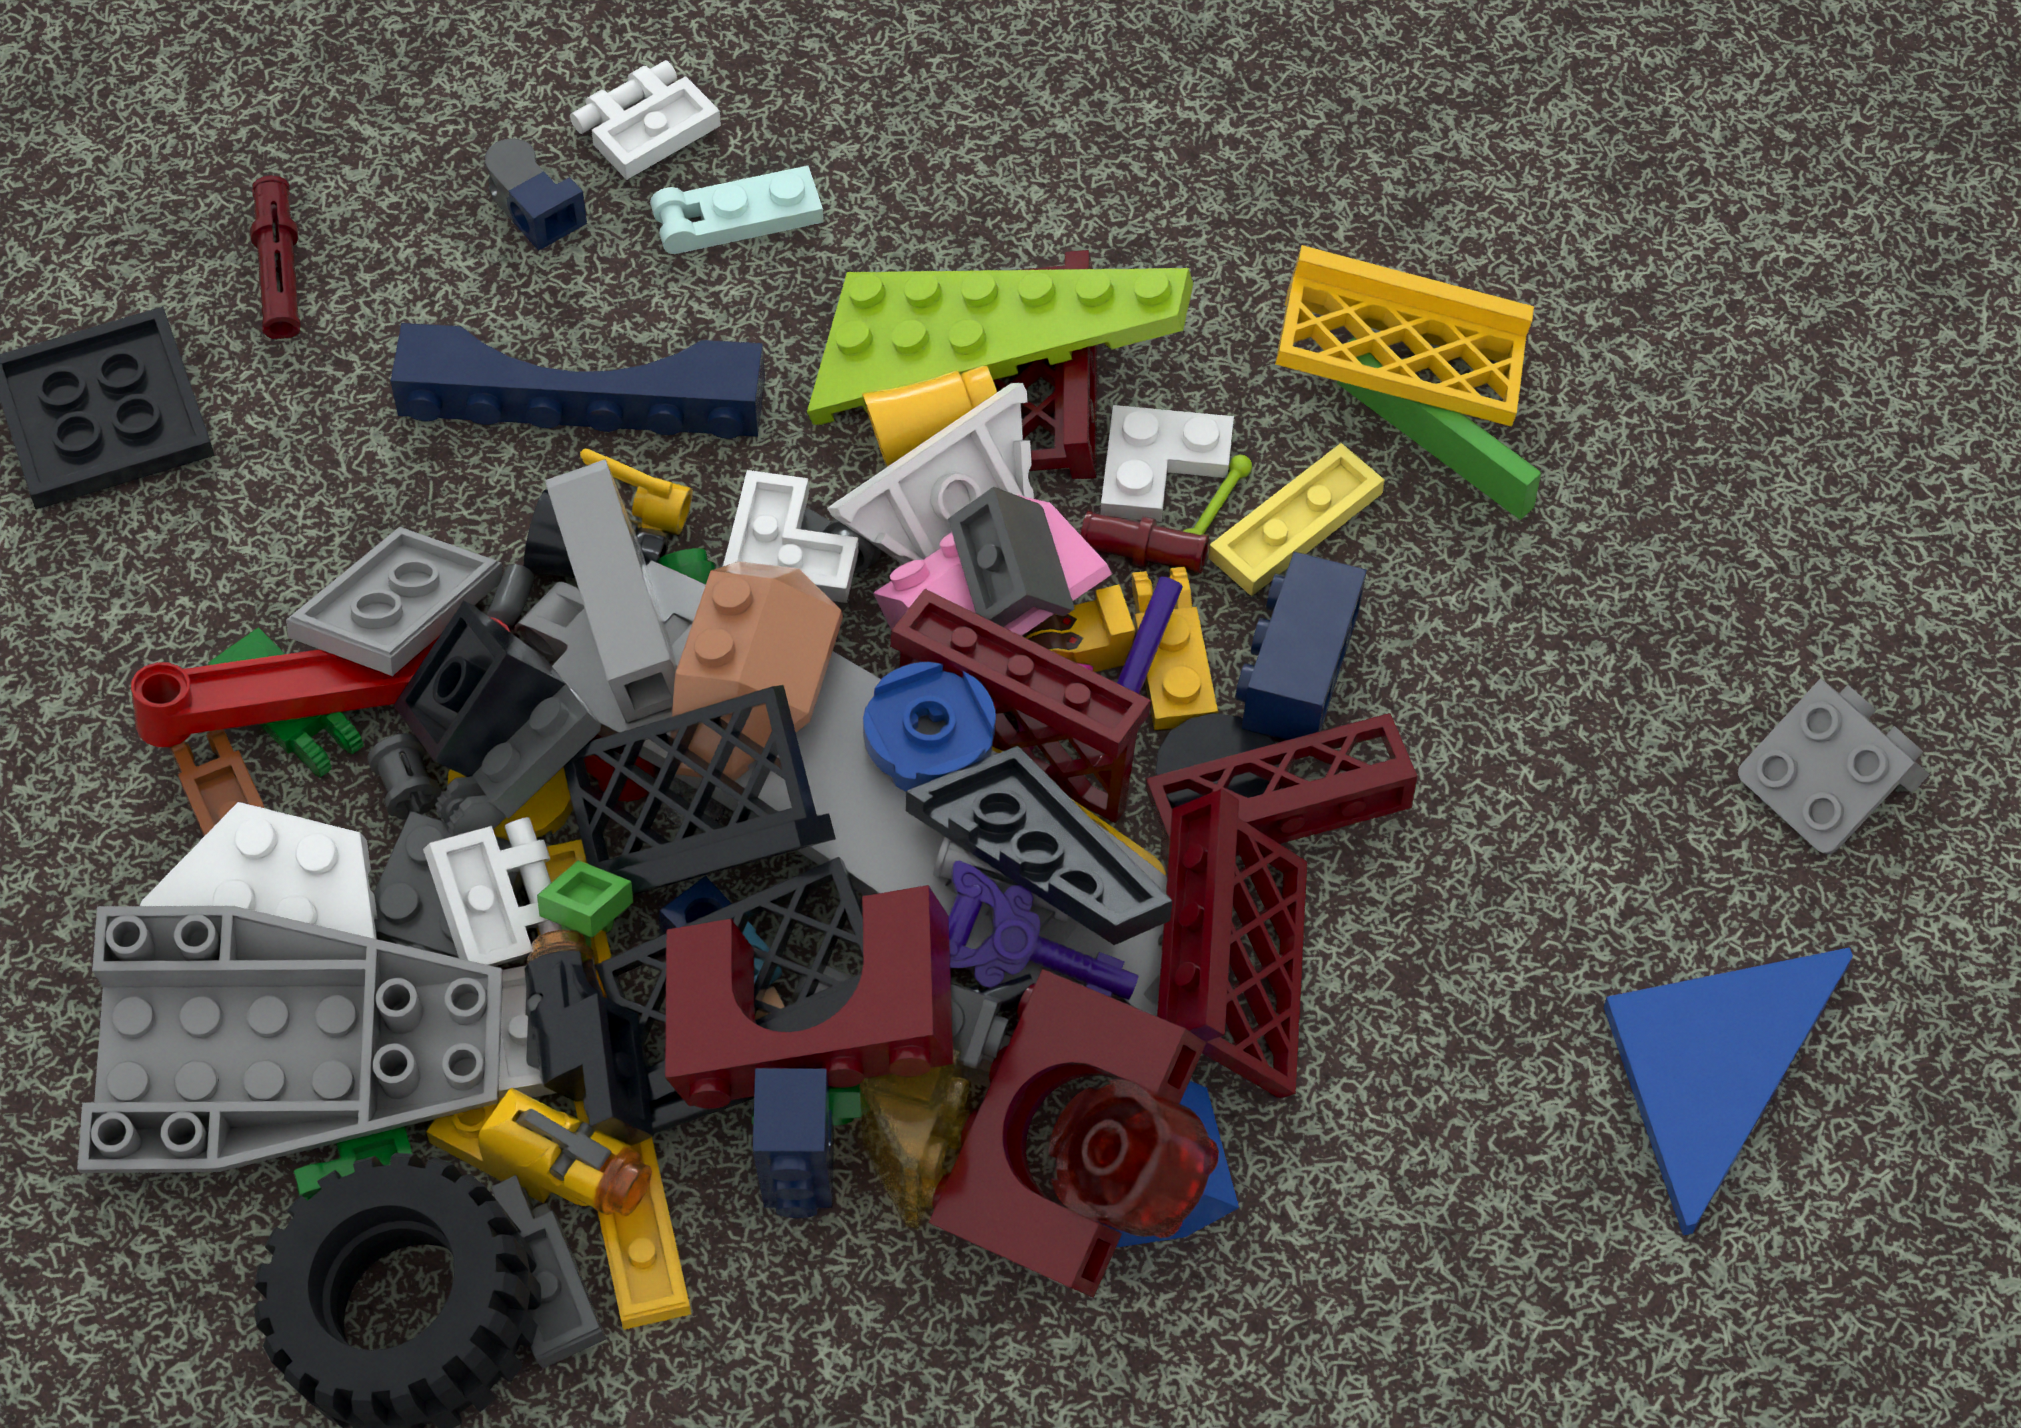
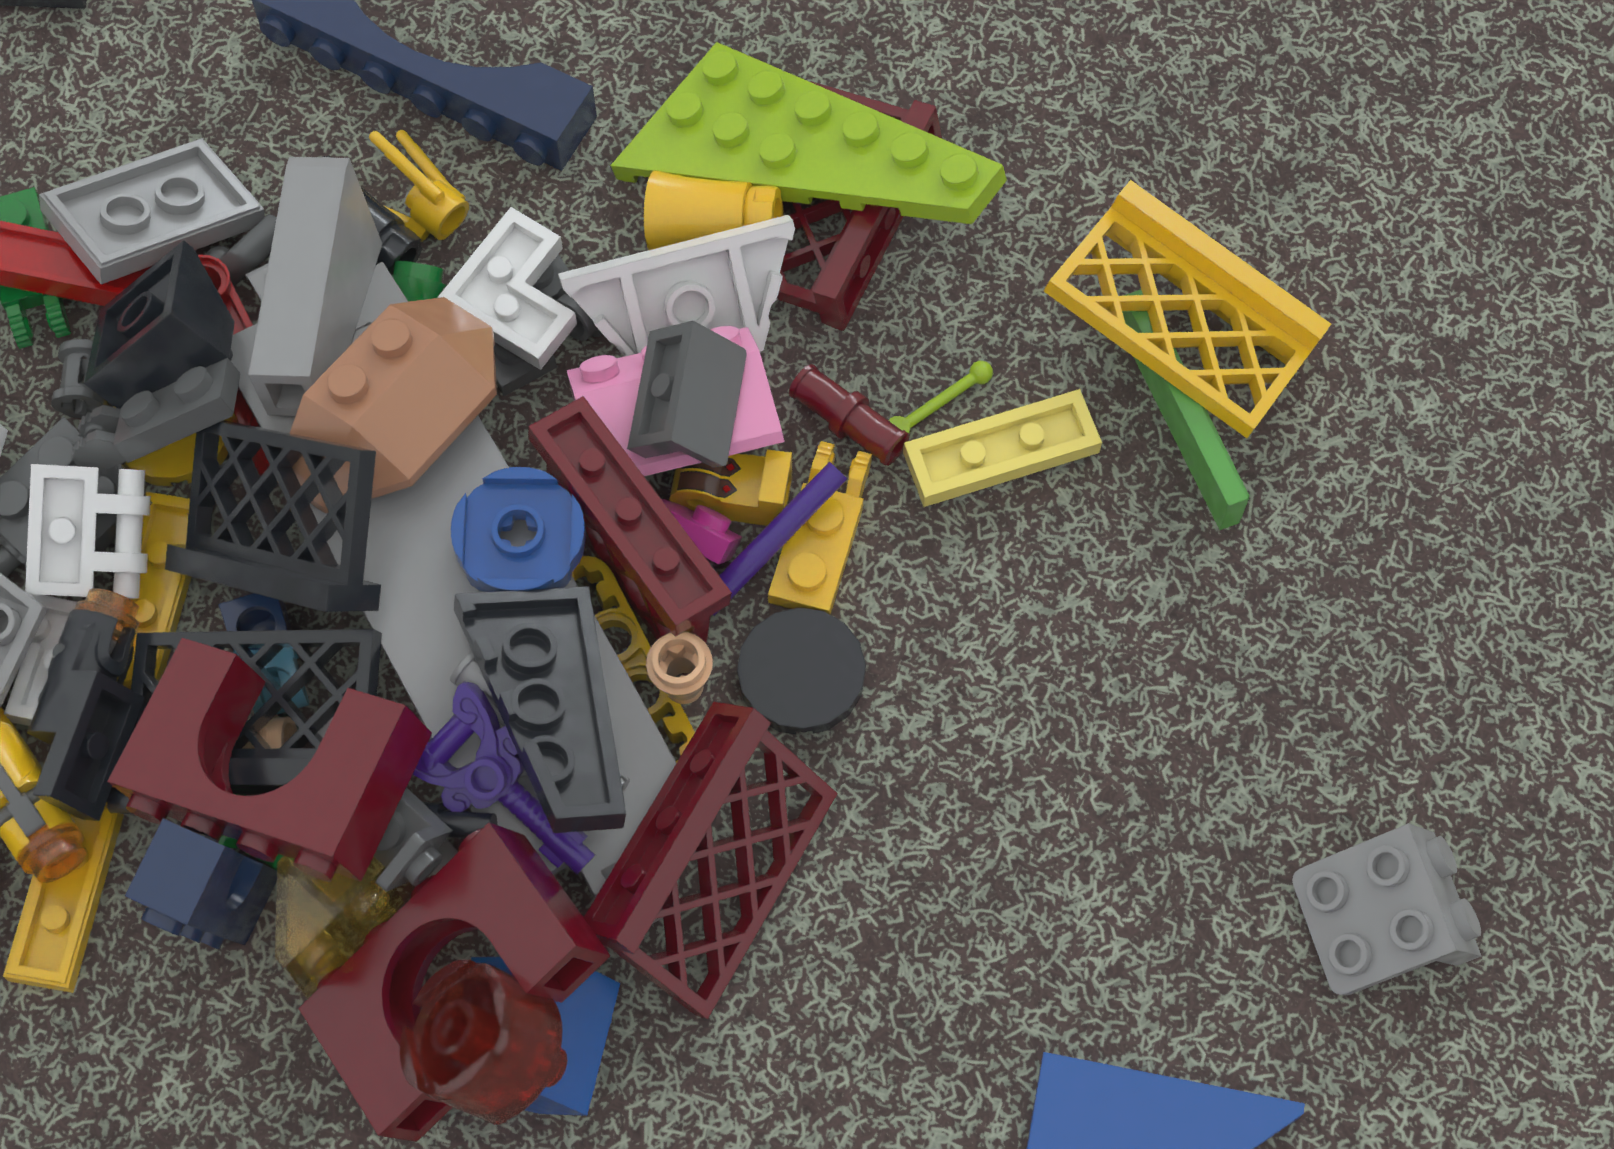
camera: 25 degrees right, 10 degrees up
(585, 899) = (152, 569): bright green tile -> none
(1126, 794) = (679, 655): none -> light nougat cone
(1158, 441) = (904, 319): white plate -> none
(1300, 647) = (933, 582): dark blue brick -> none
(1302, 805) = (855, 741): dark red fence -> none

